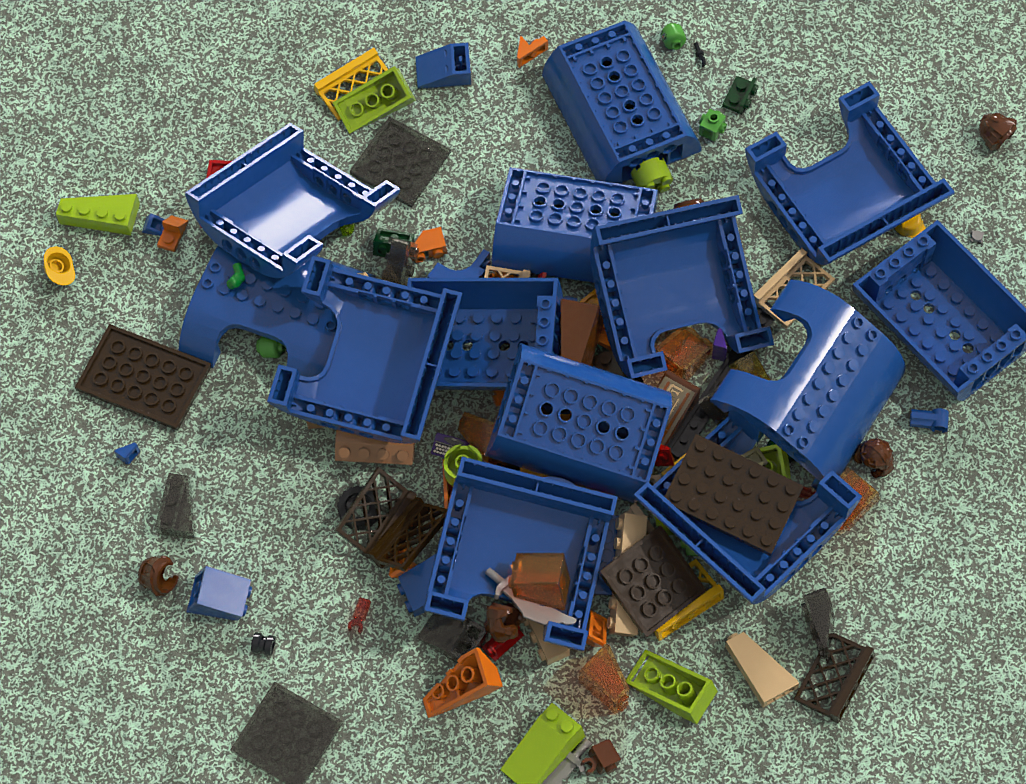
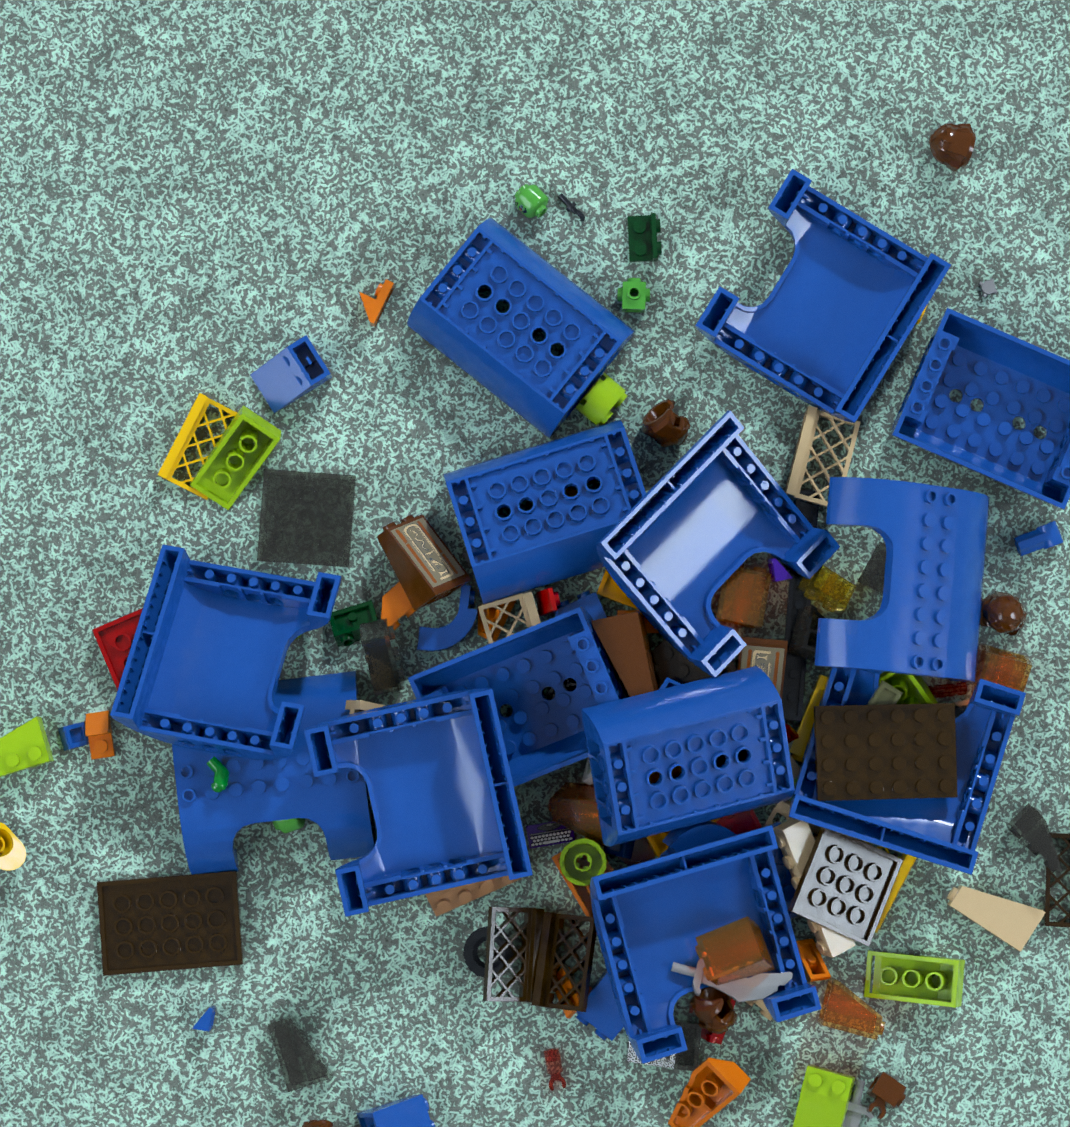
camera: 30 degrees left, 20 degrees up
(463, 221) = (421, 561): none -> slope

